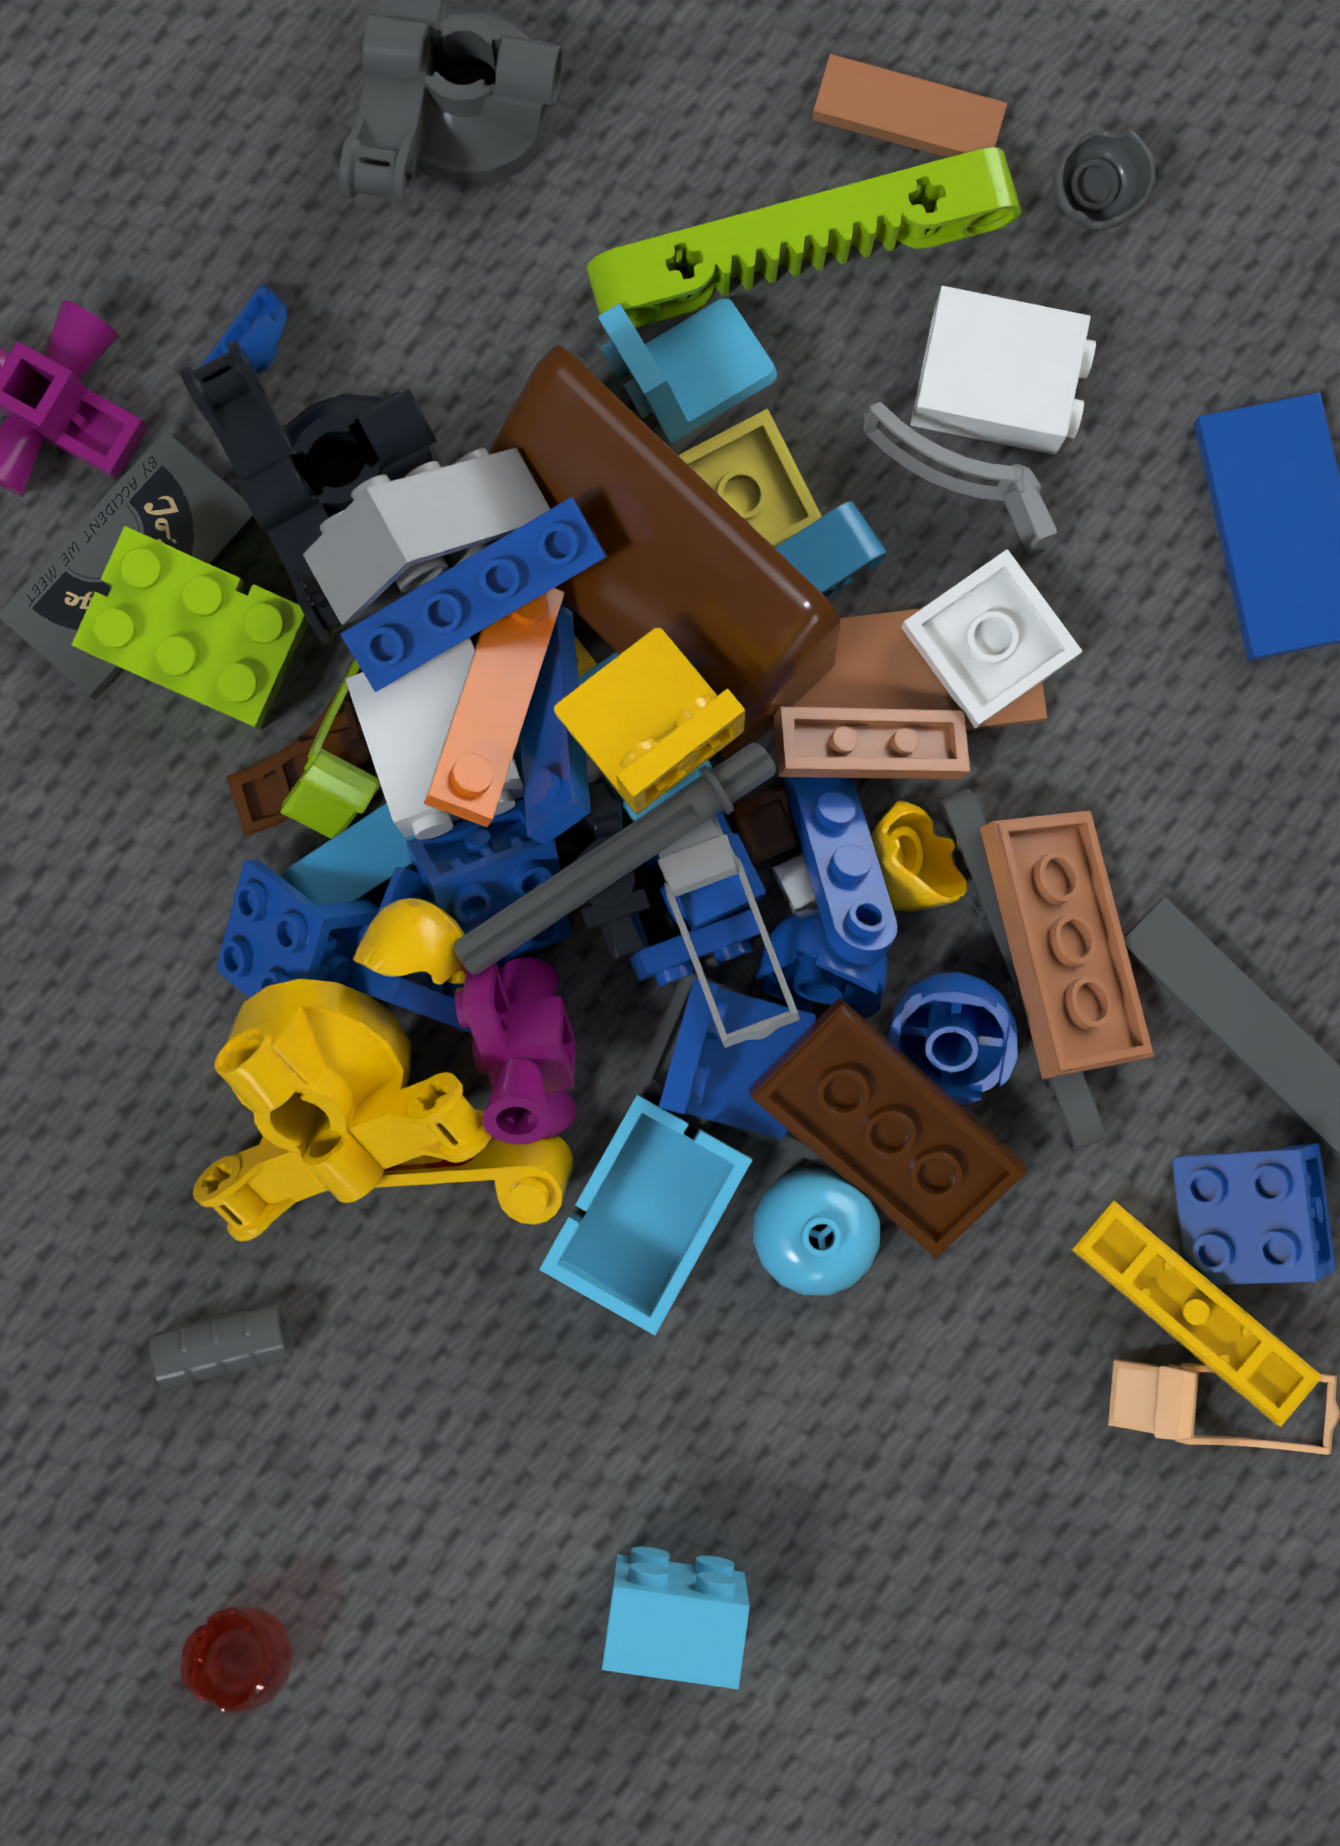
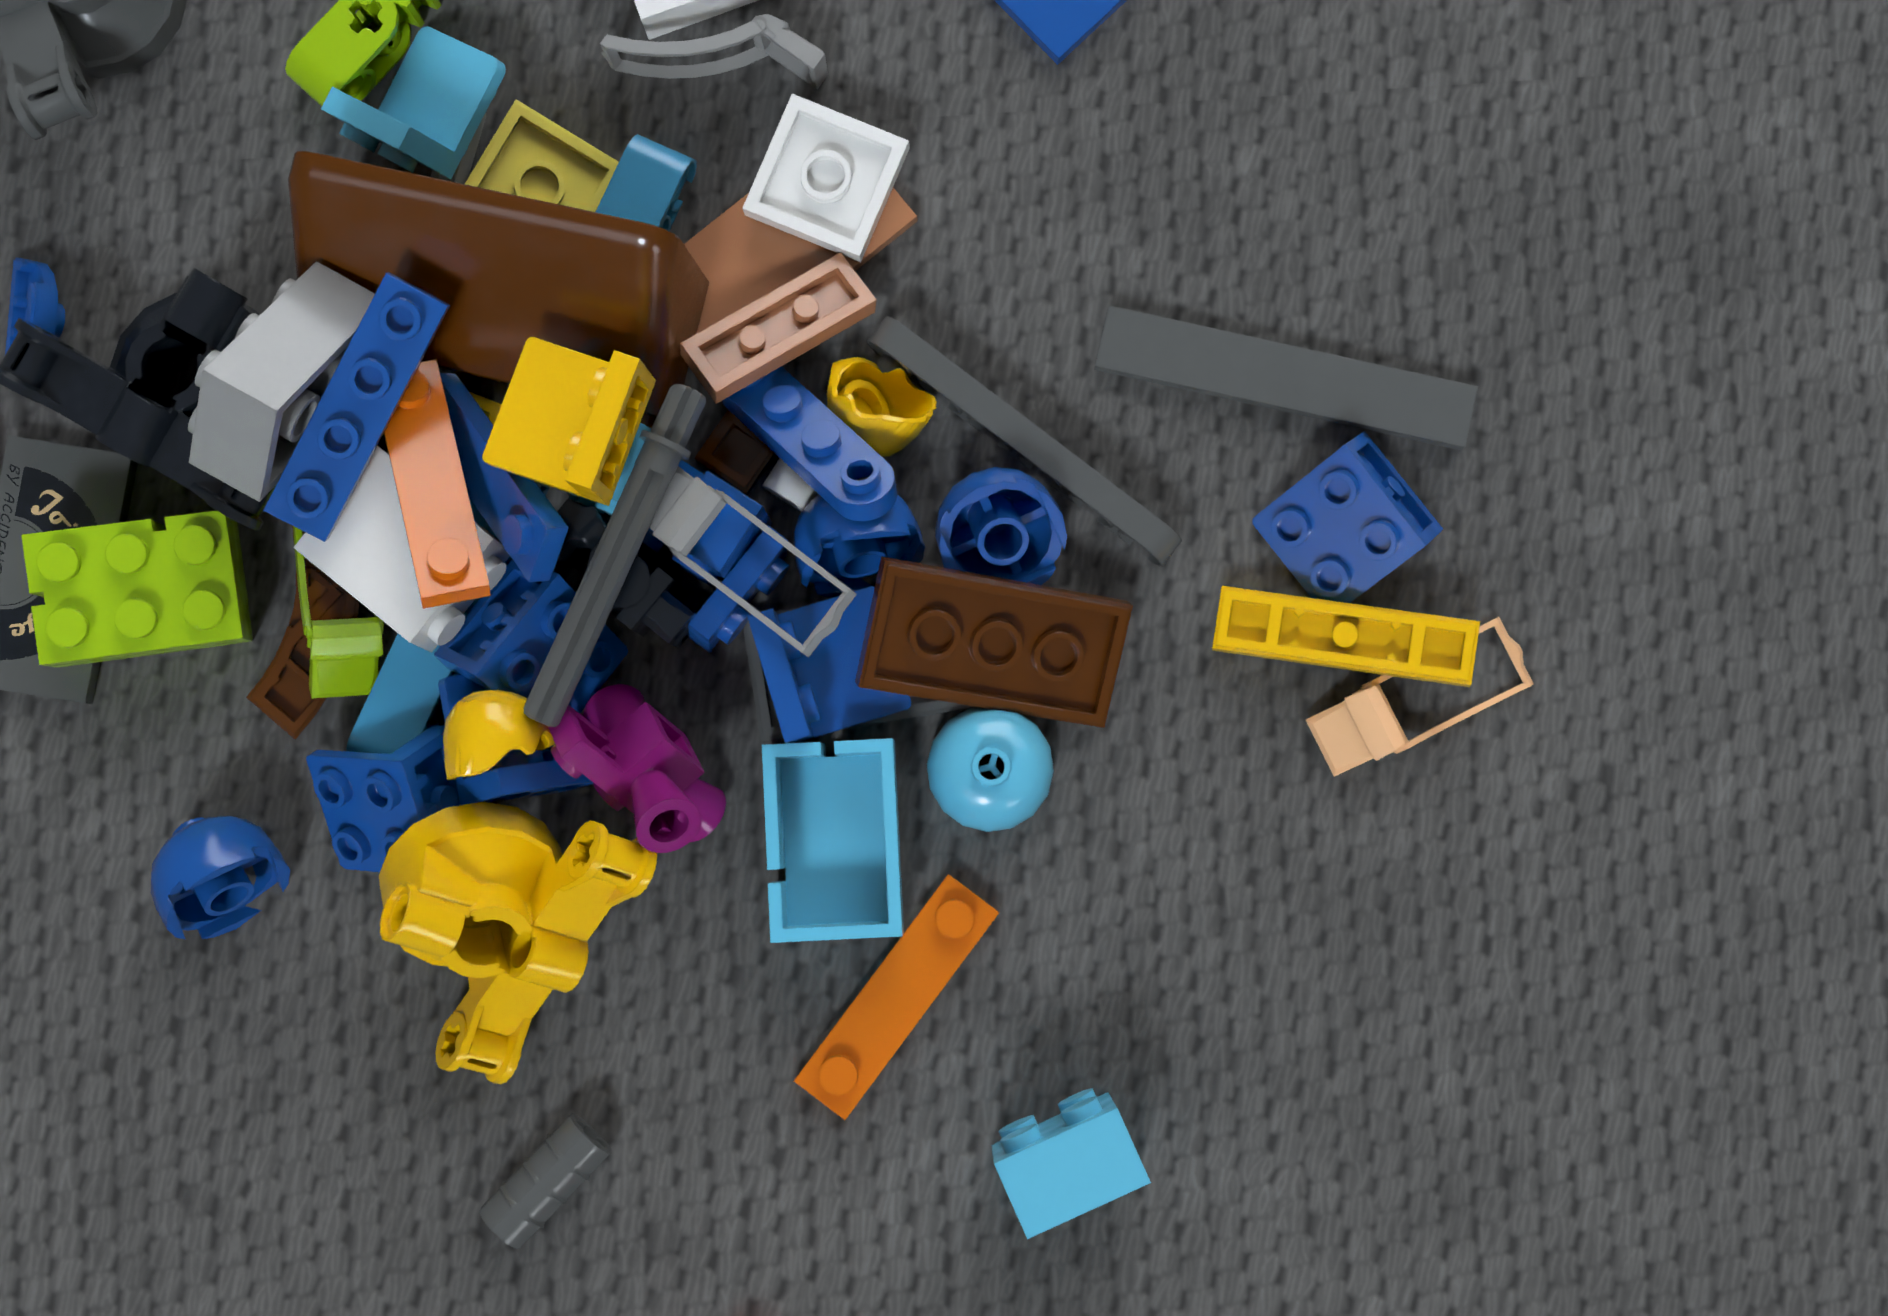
camera: 30 degrees left, 0 degrees up
(95, 909) = (202, 876): none -> blue cylinder
(526, 1176) = (713, 872): yellow door -> none
(615, 1376) = (896, 996): none -> orange plate
(1066, 943) = (1047, 394): nougat tile -> none

